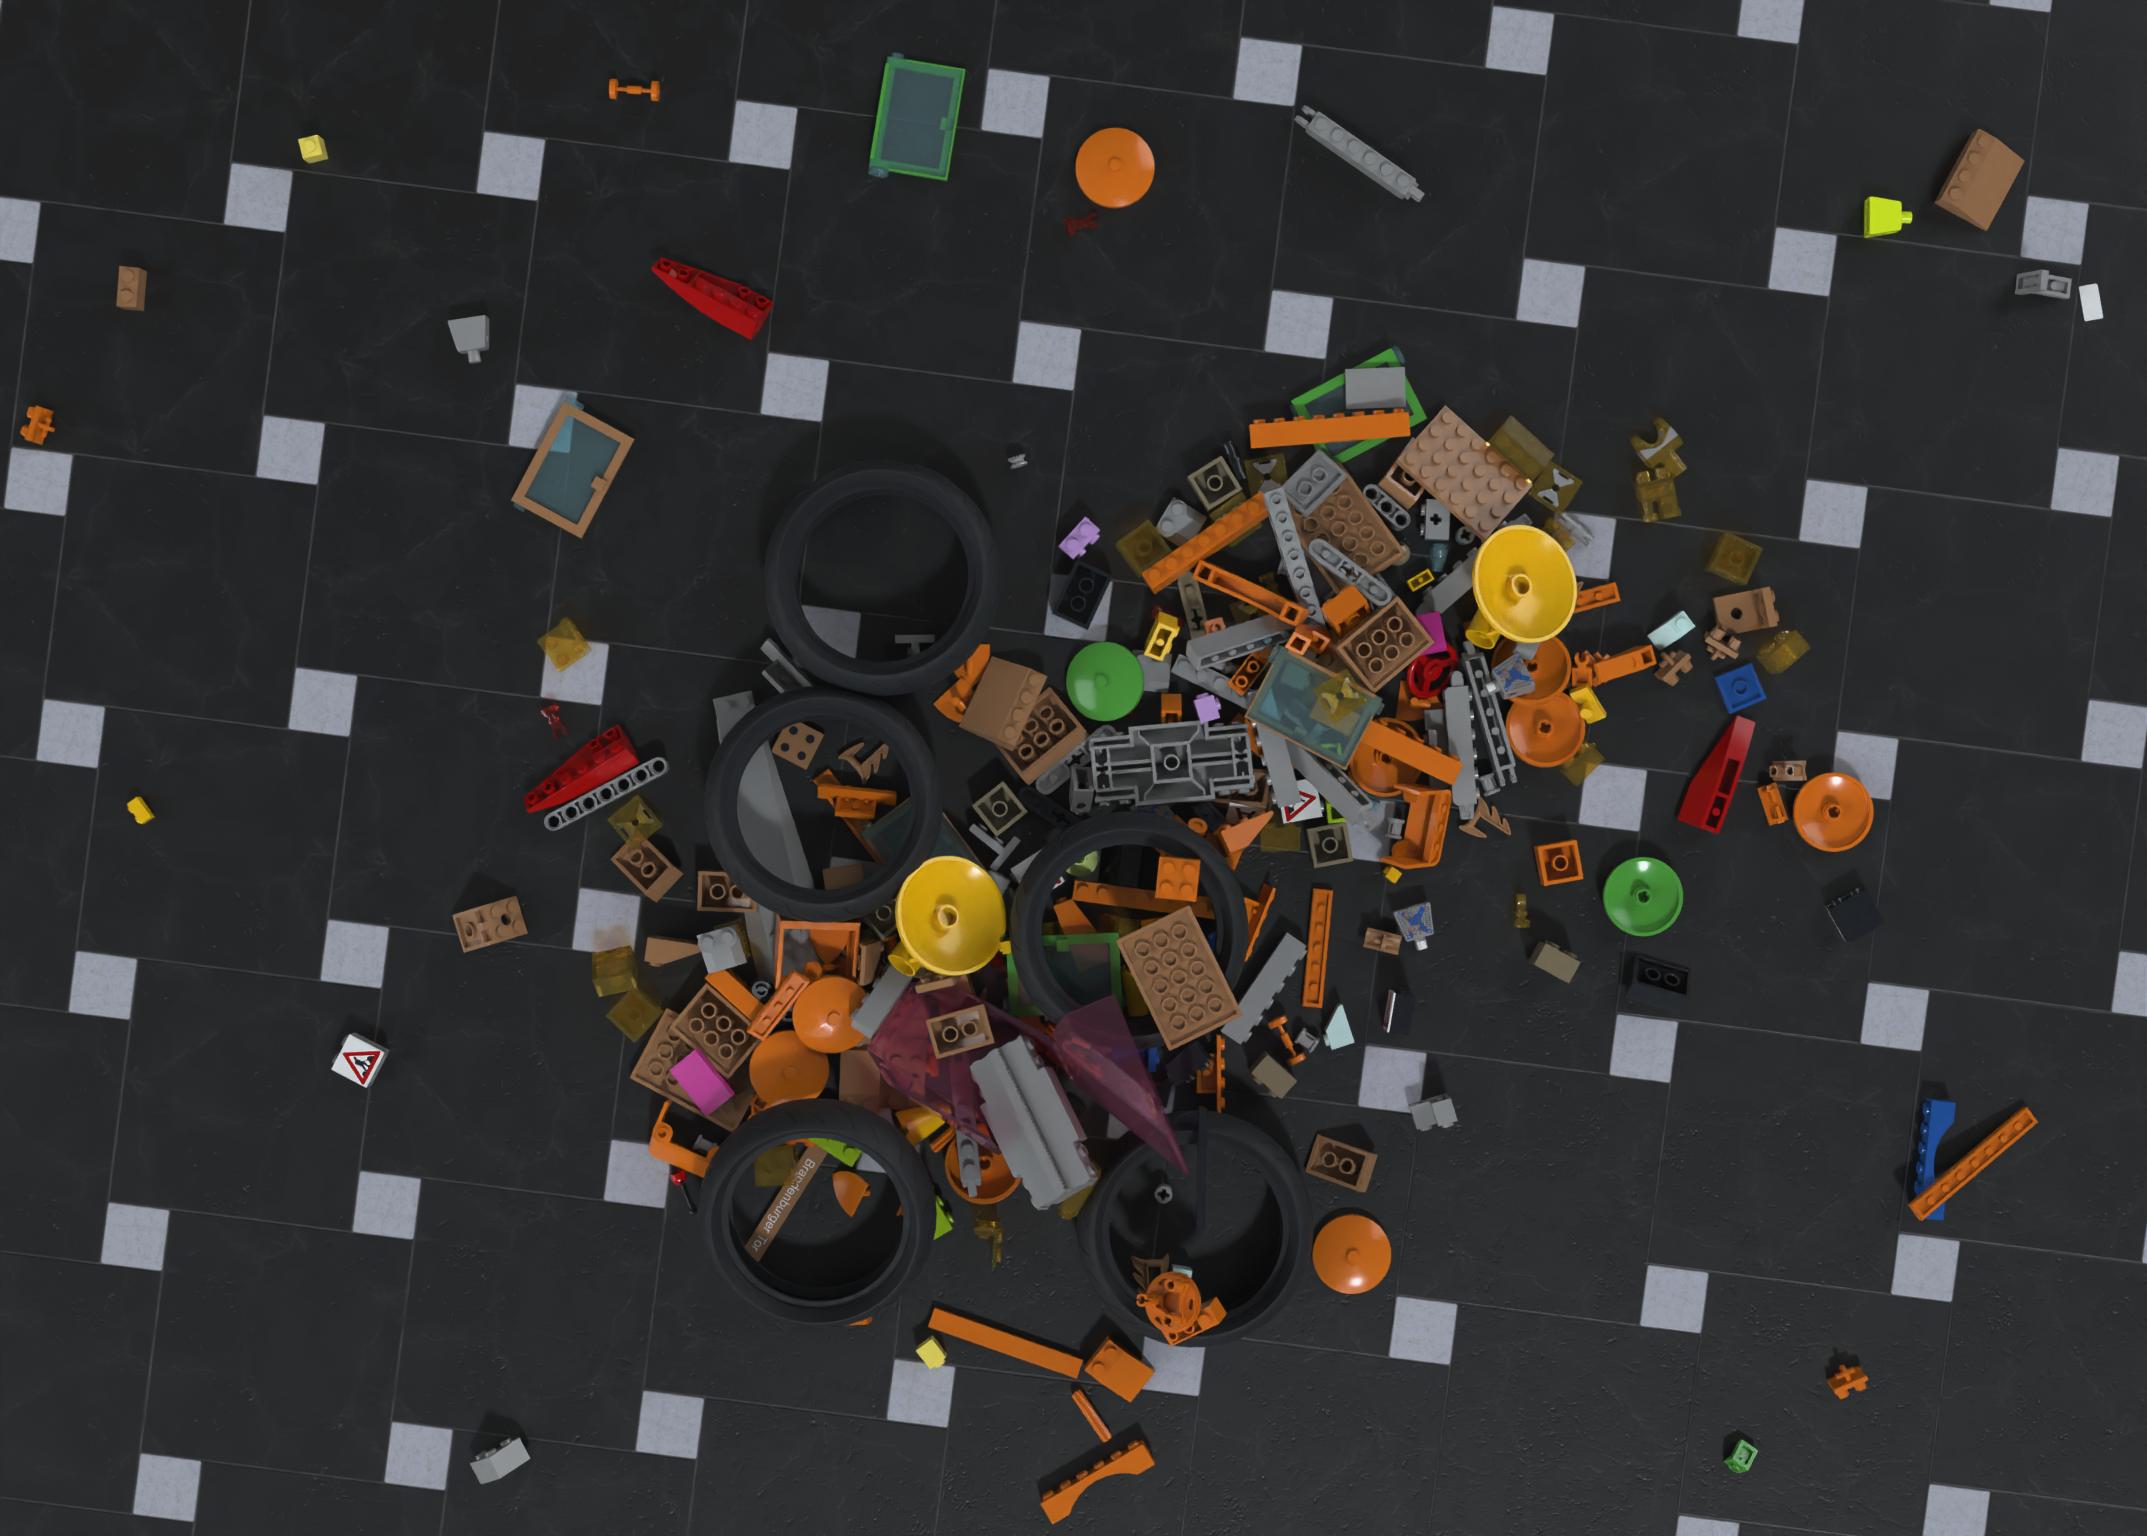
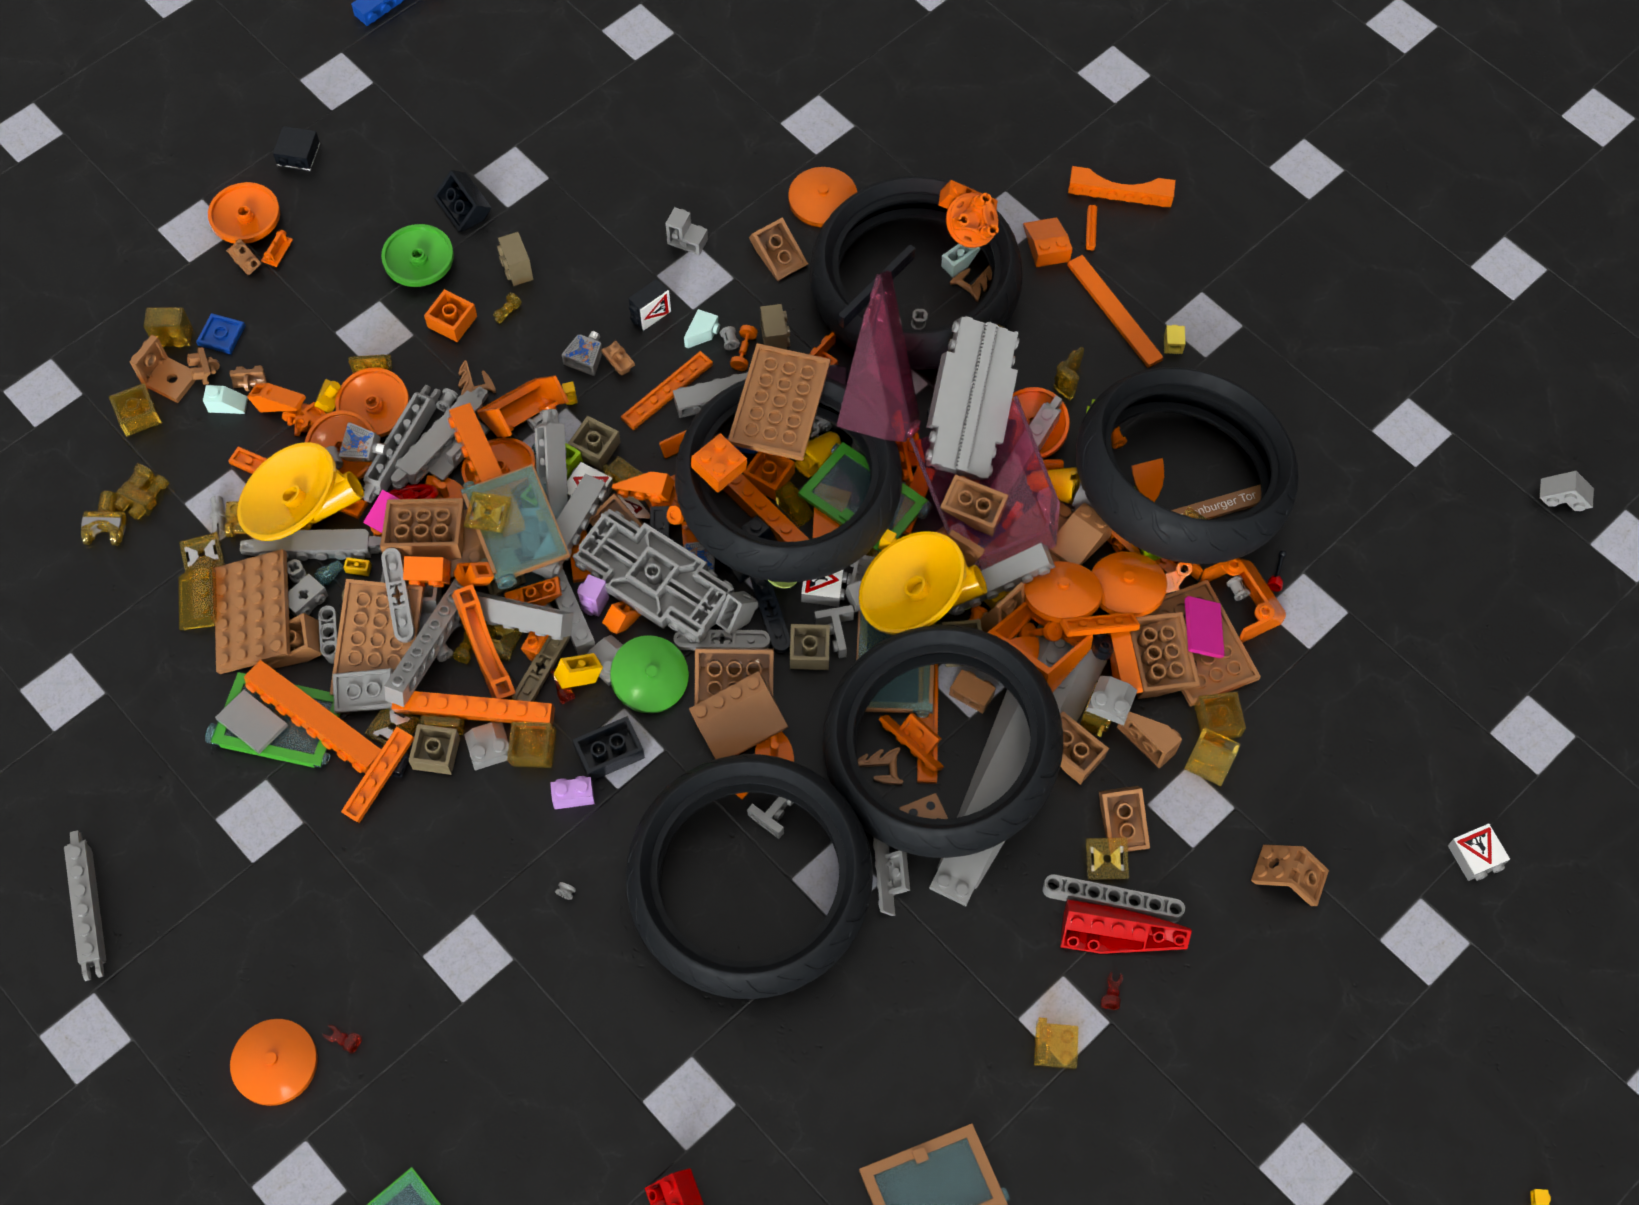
camera: 145 degrees left, 25 degrees down
(1238, 428) = (377, 774): none -> orange plate
(1716, 780) = (294, 287): red wedge -> none

